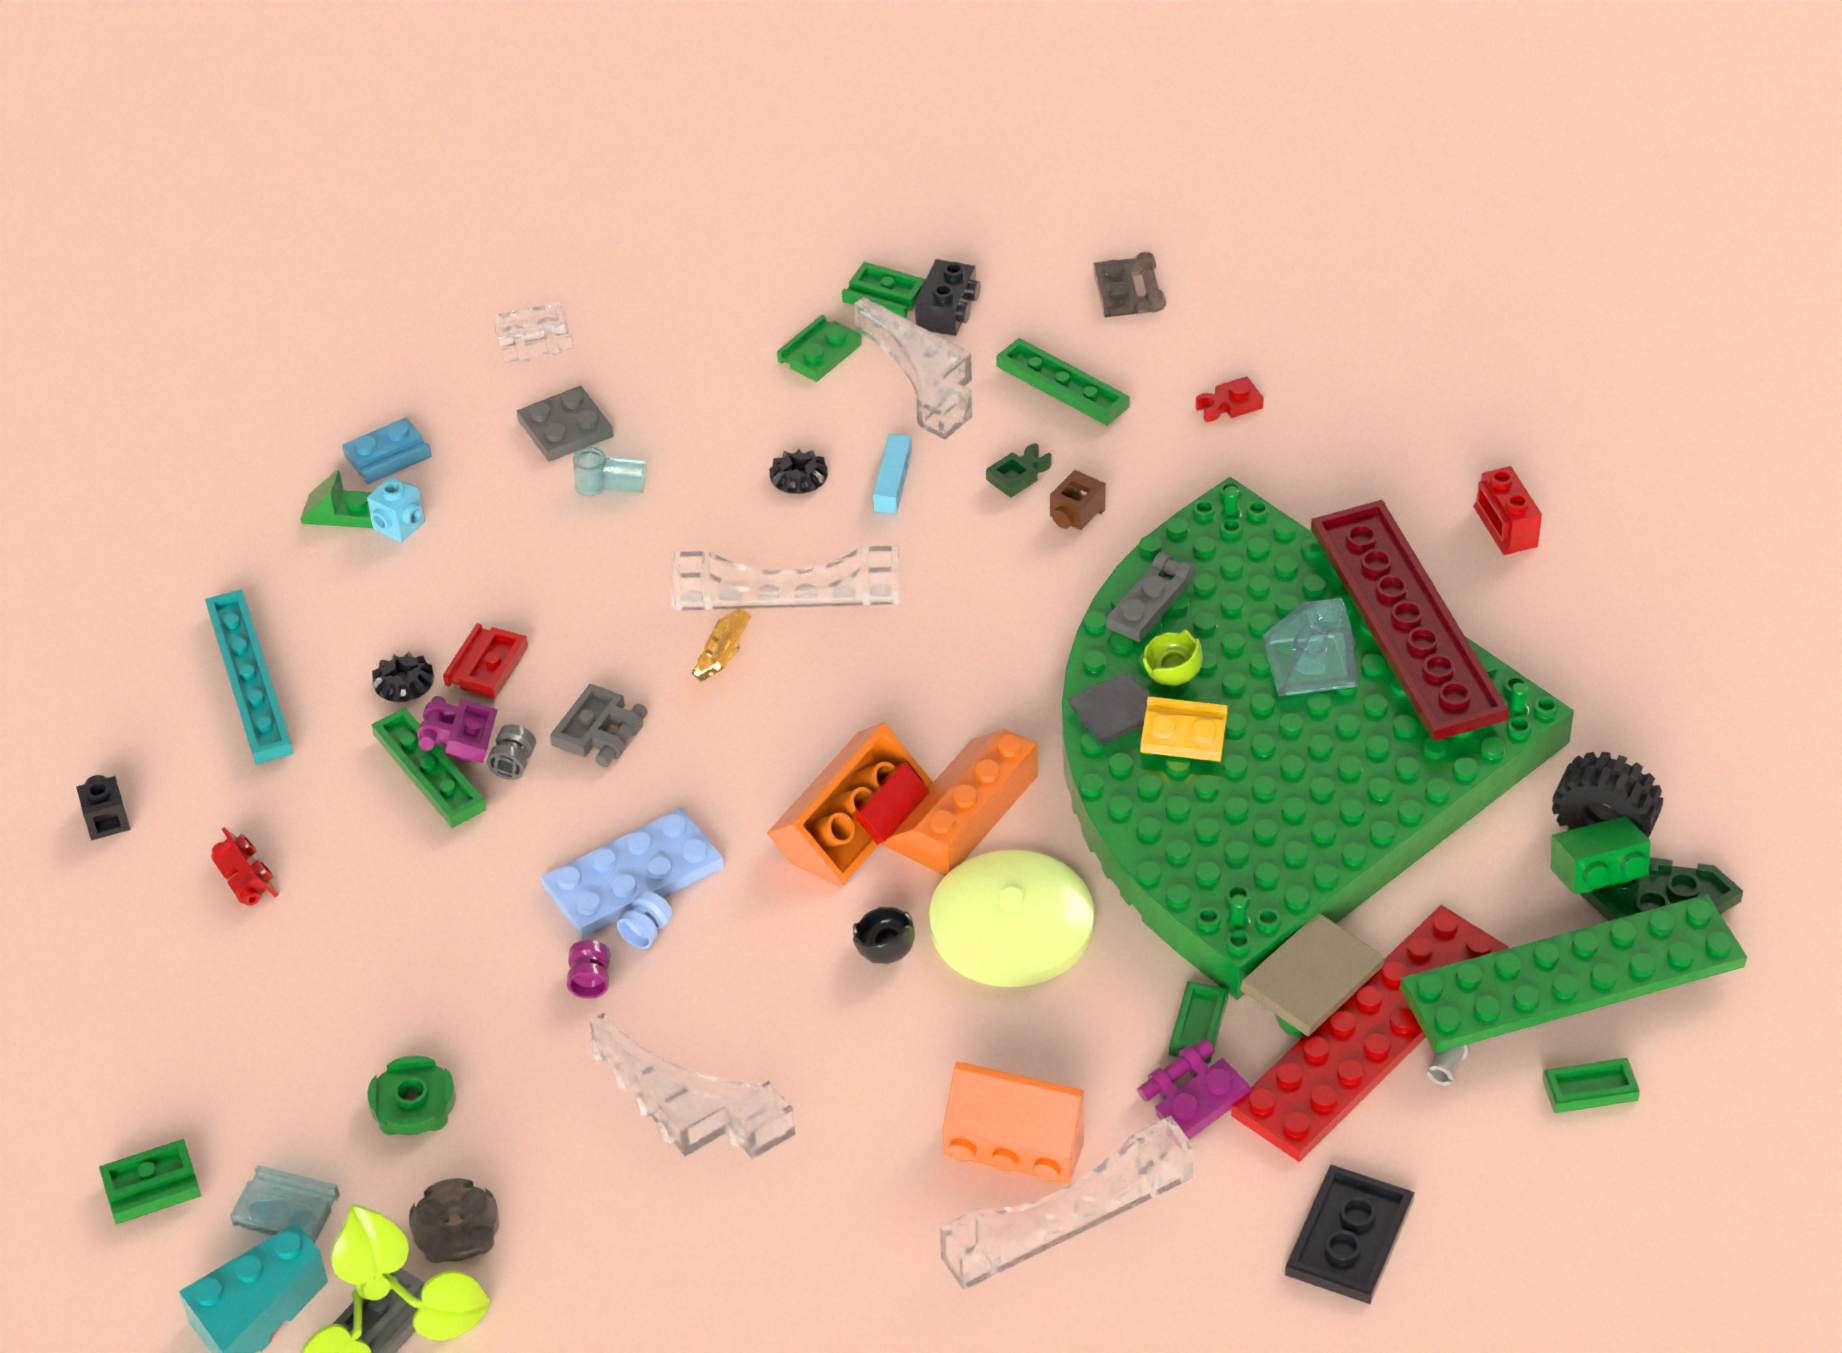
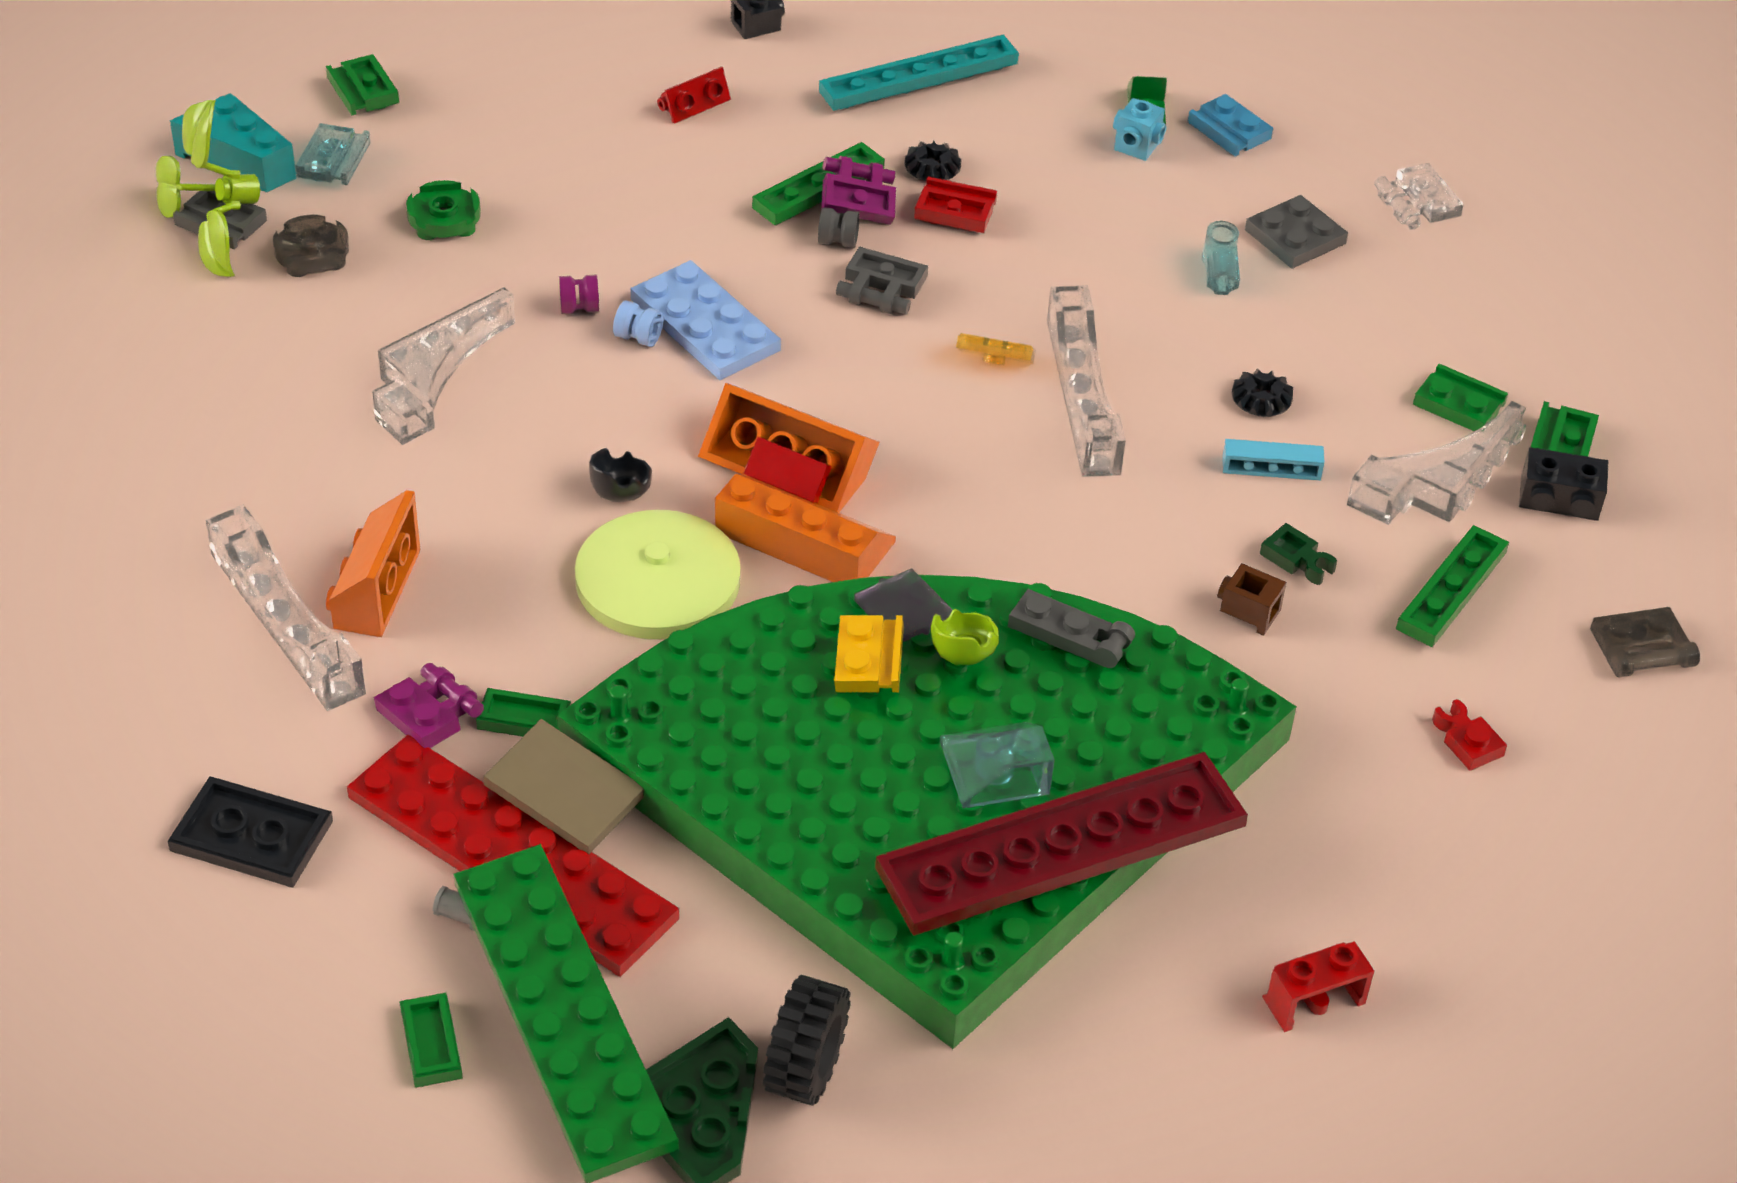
camera: 80 degrees right, 0 degrees up
(1600, 855) = (721, 1027): green brick -> none

